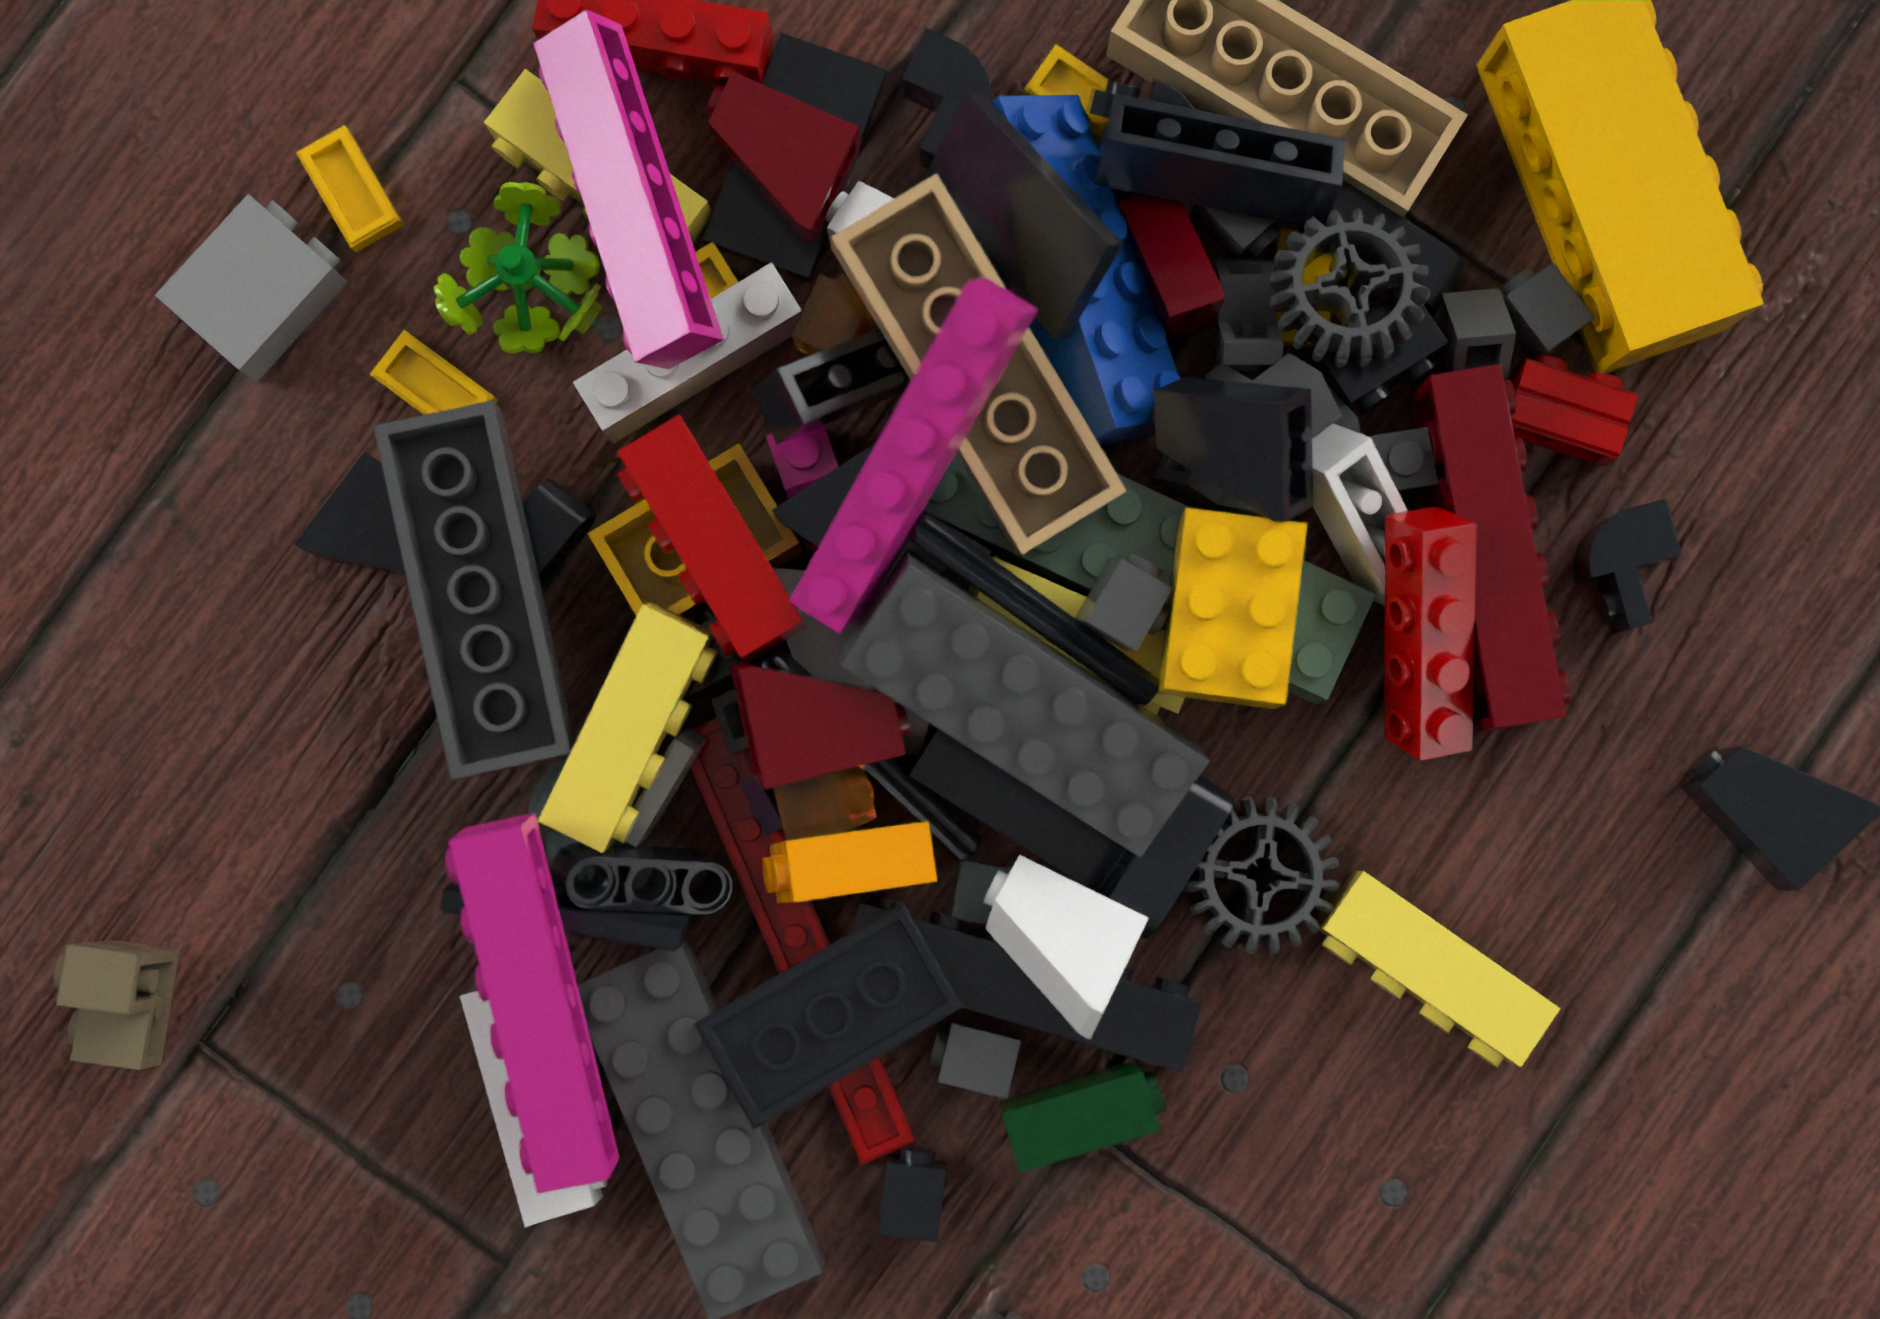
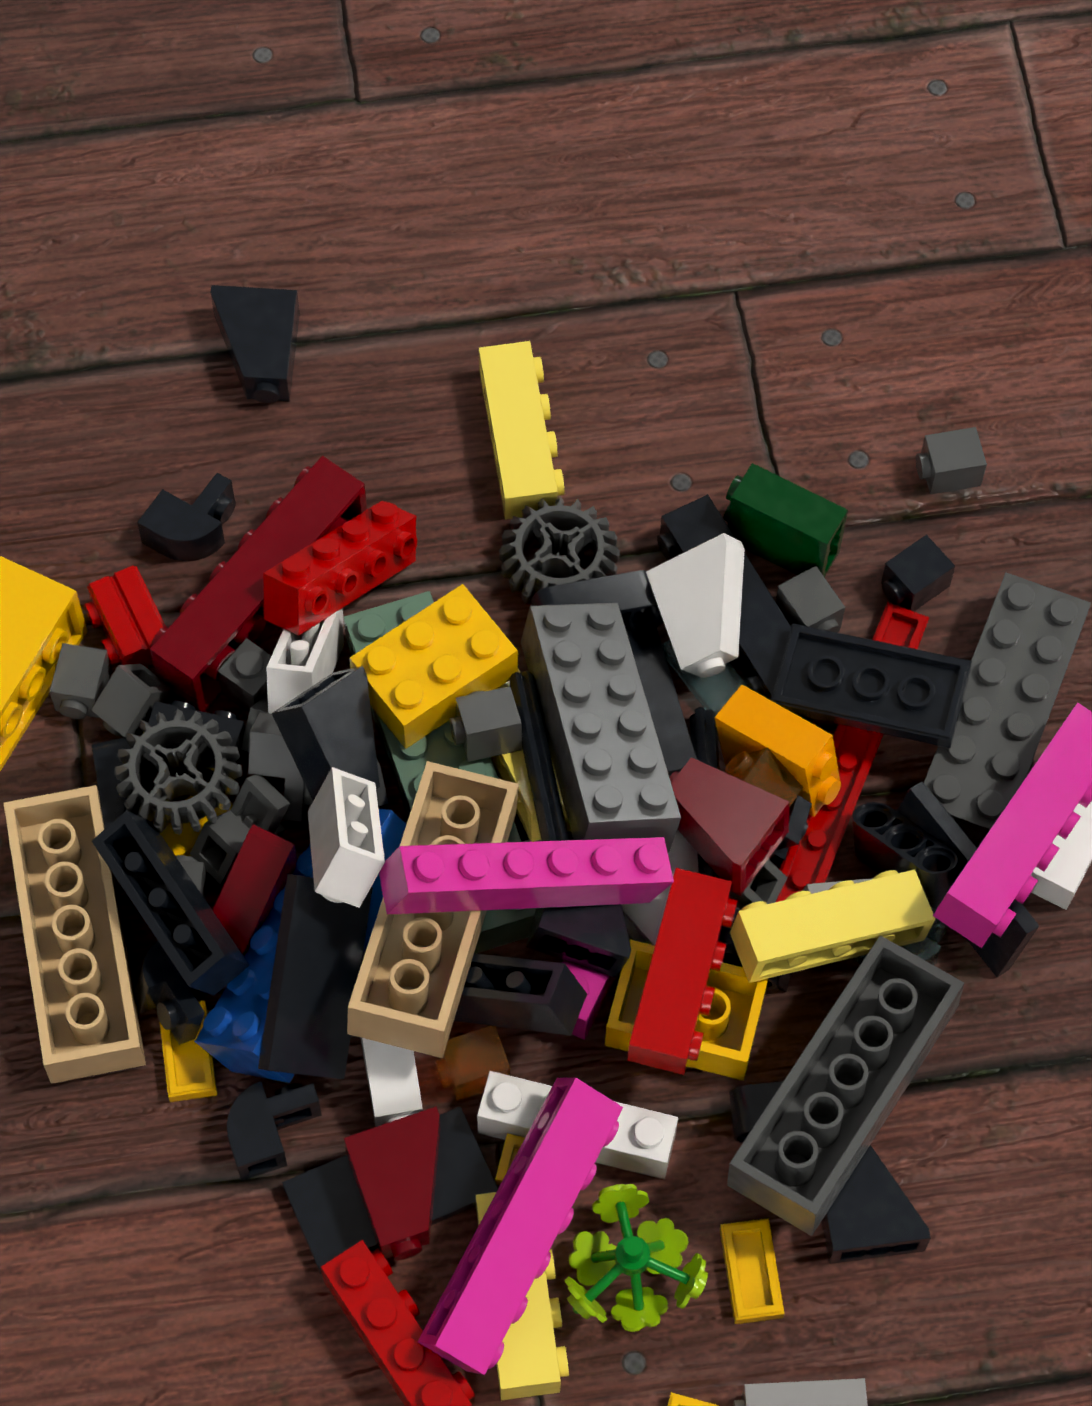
camera: 140 degrees left, 20 degrees down
(1109, 328) = (345, 838): none -> white brick

